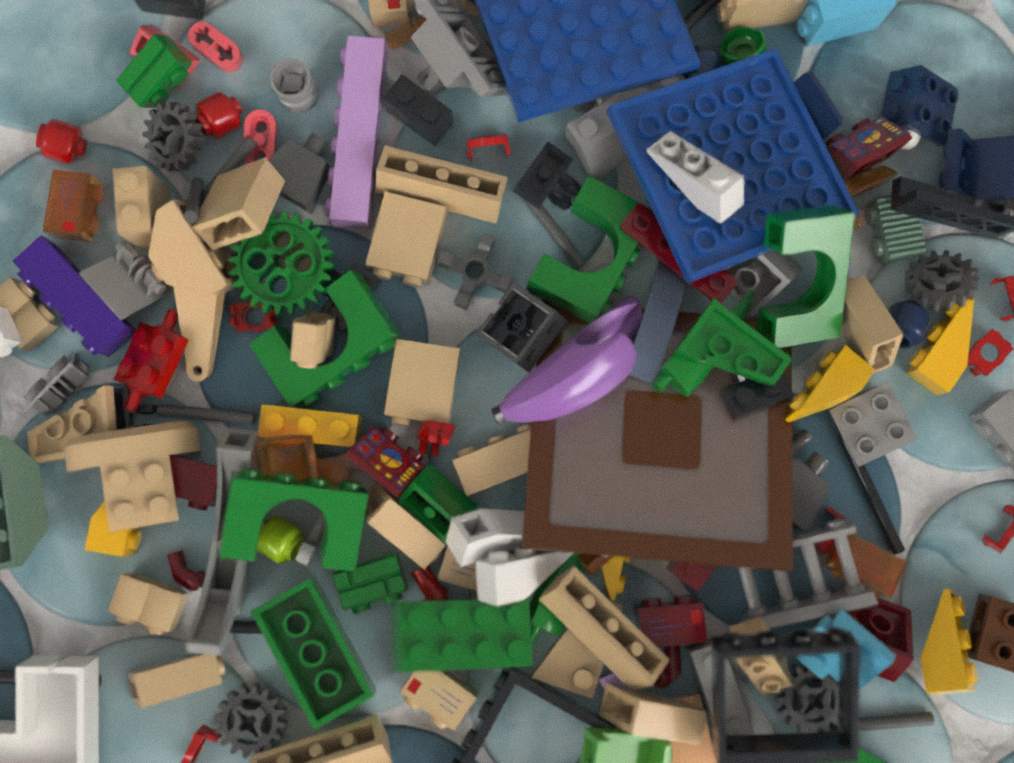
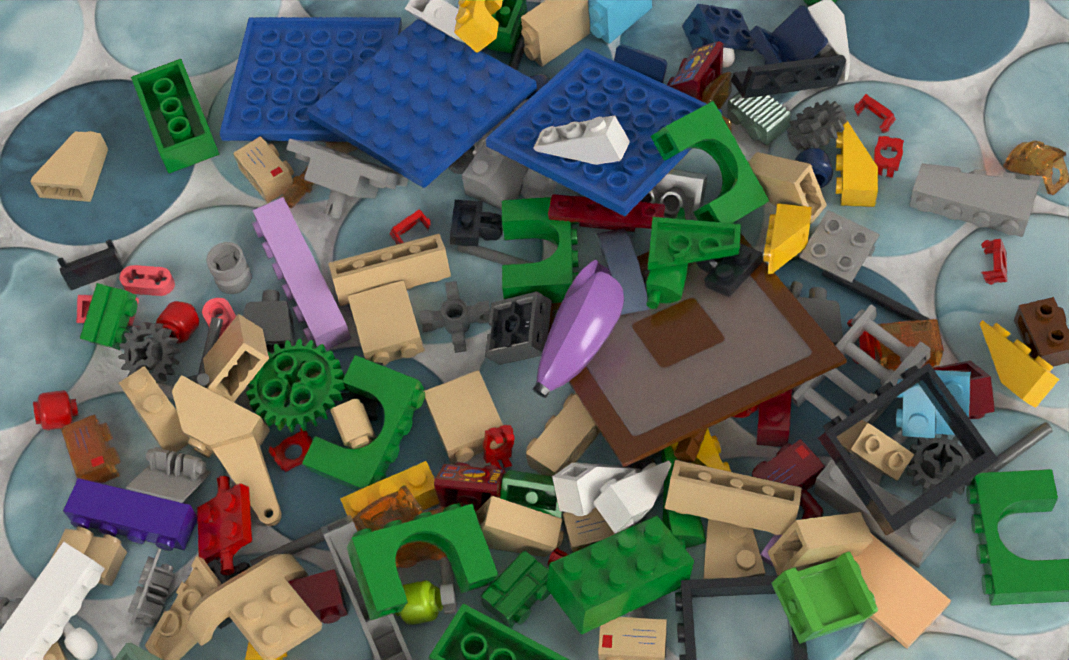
camera: 20 degrees left, 25 degrees down
(418, 110) = (339, 232): black brick -> none
(742, 44) = (558, 60): green hair -> none

